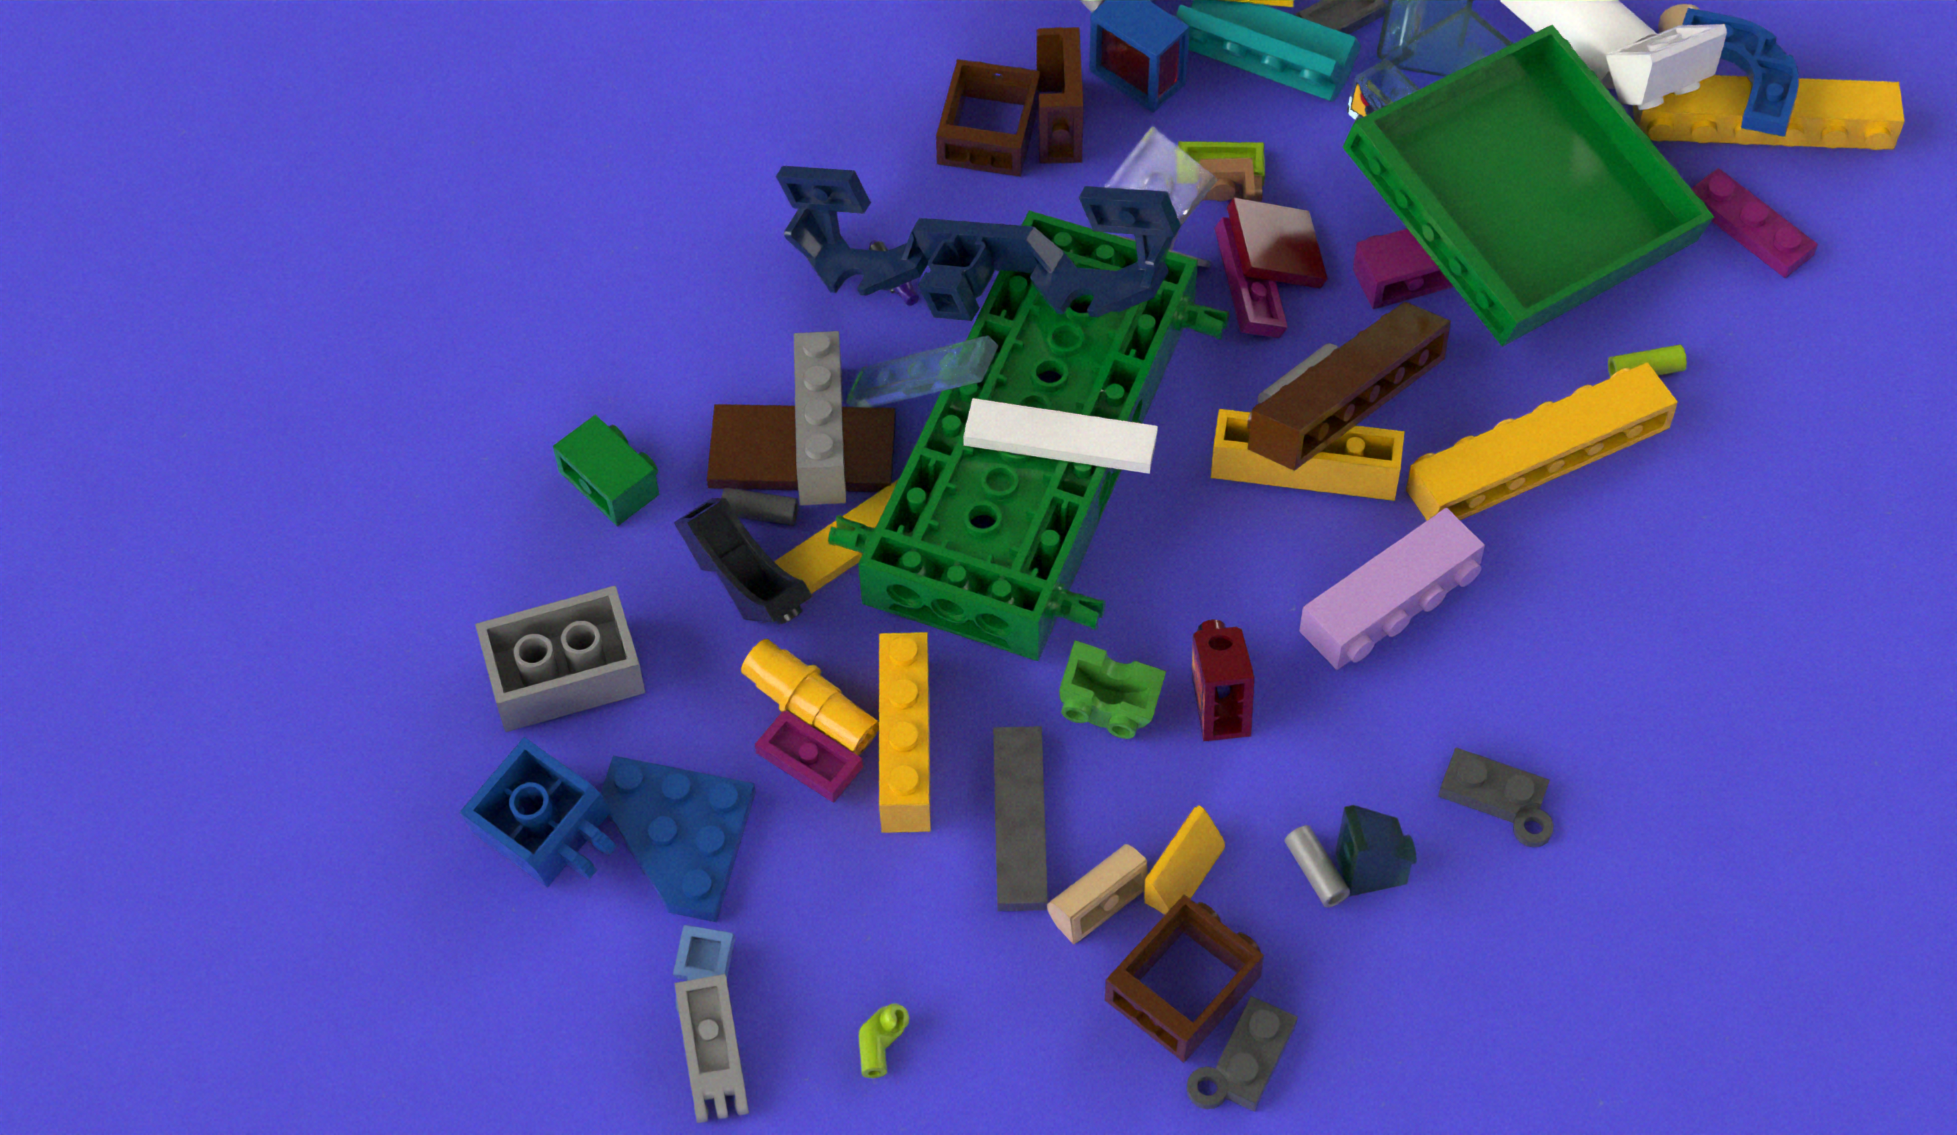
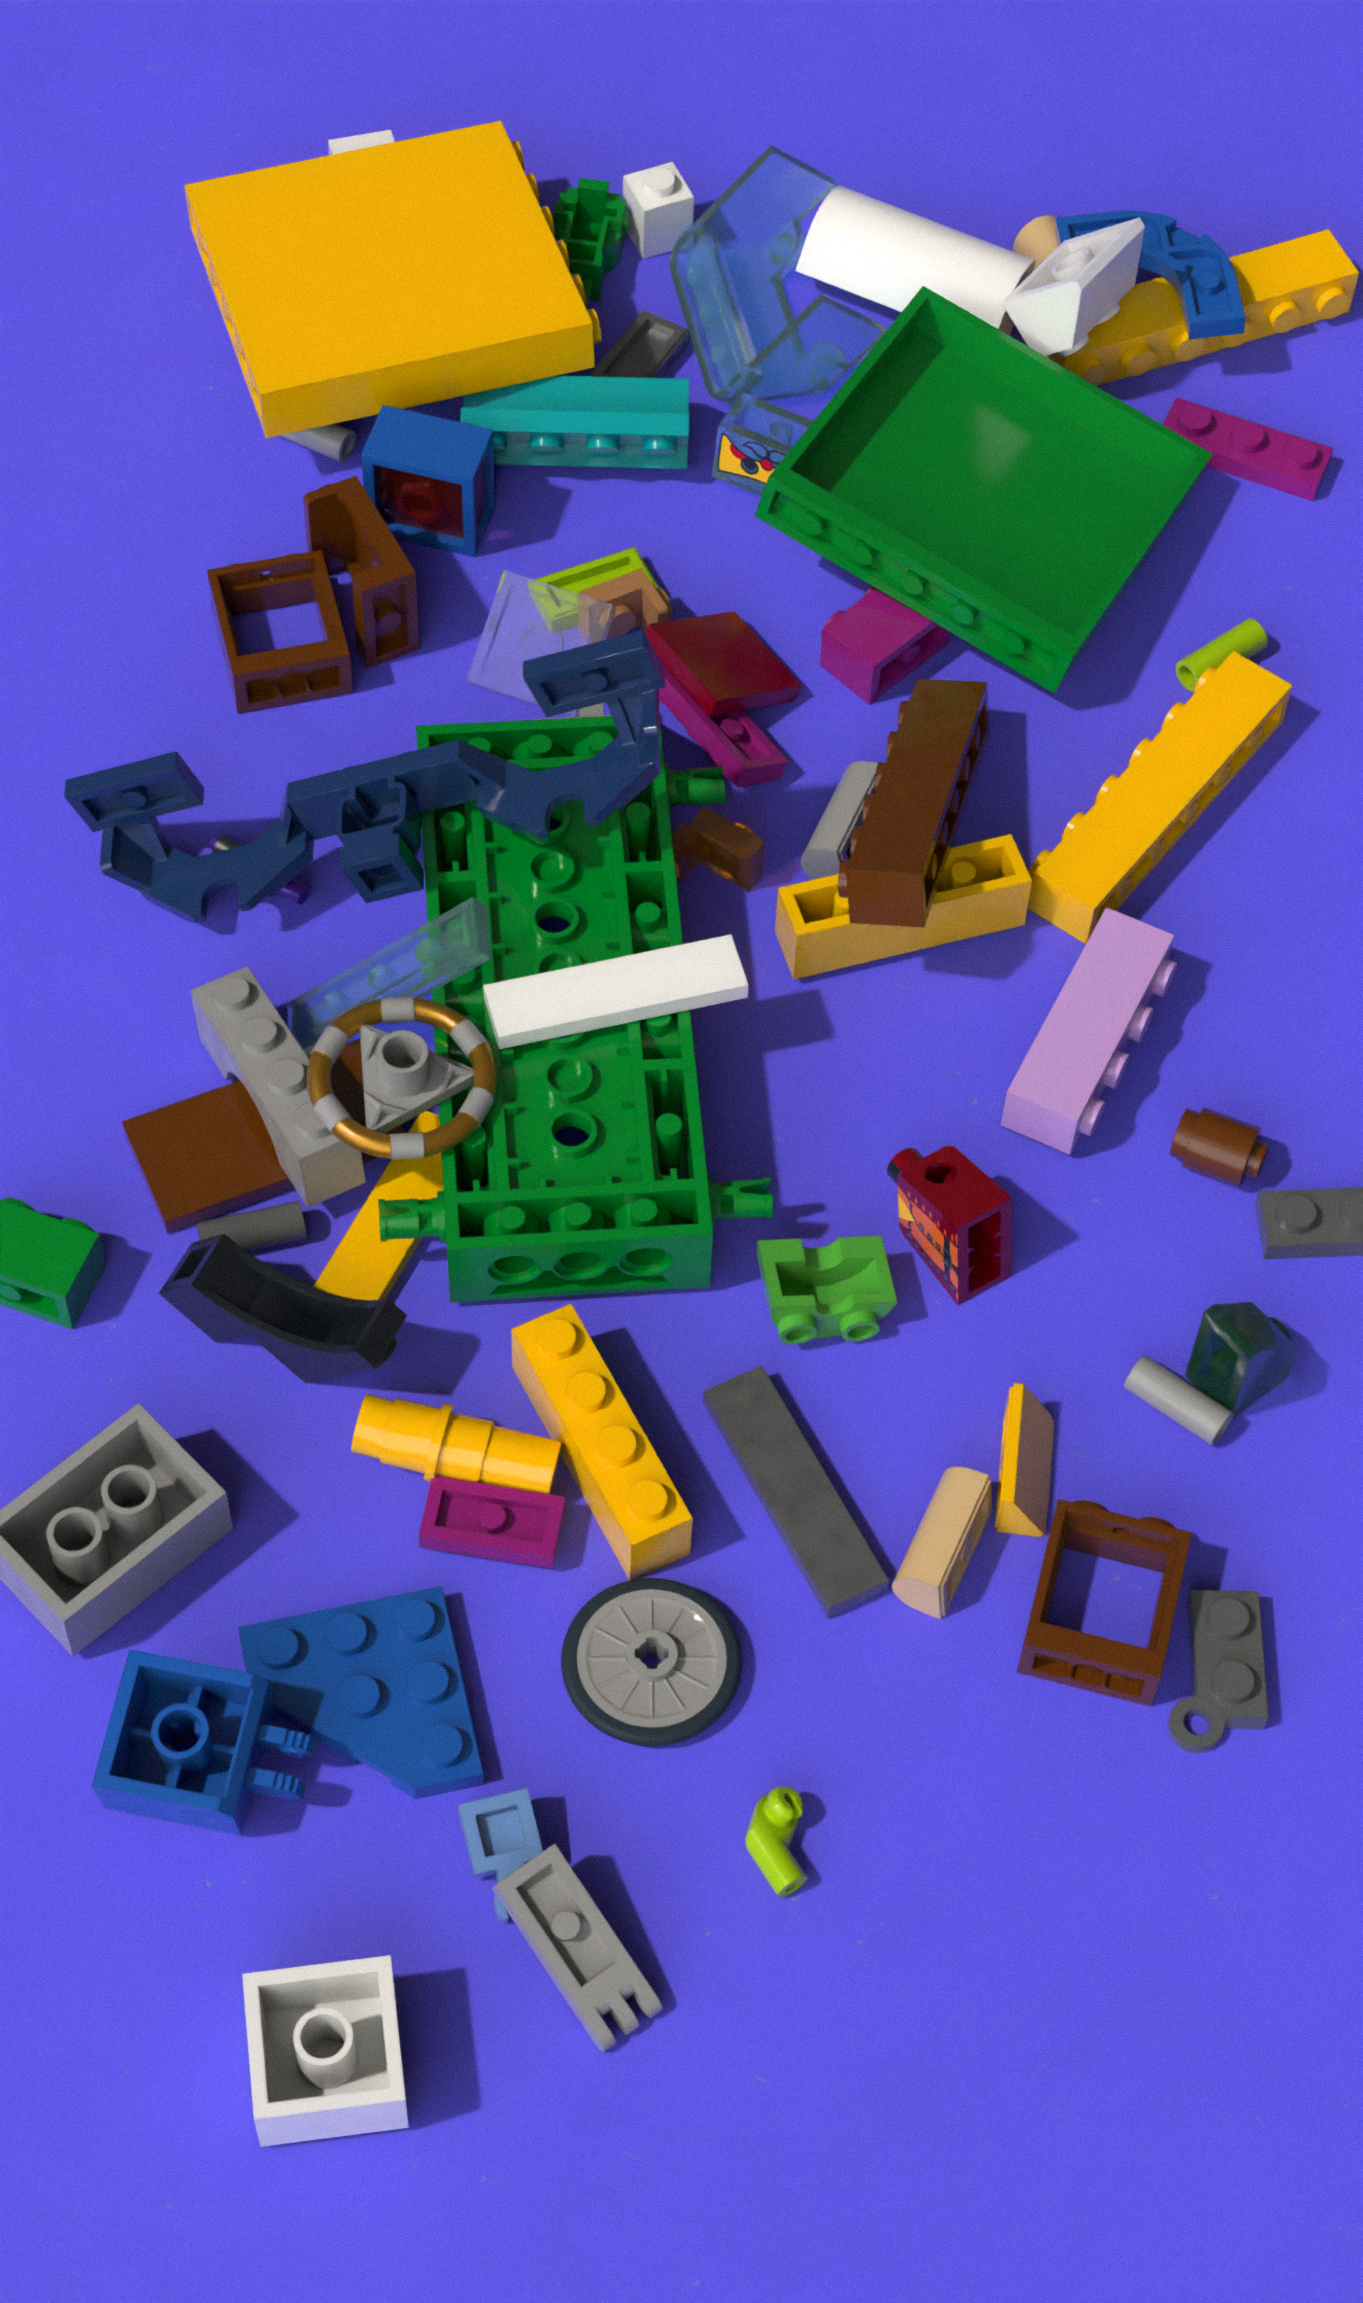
camera: 30 degrees left, 0 degrees up
(517, 1040) = (324, 2051): none -> white brick
(875, 915) = (644, 1704): none -> light grey wheel
(888, 440) = (403, 1078): none -> light grey piece
(1202, 362) = (720, 846): none -> clear orange bracket
(1443, 704) = (1219, 1146): none -> reddish brown brick

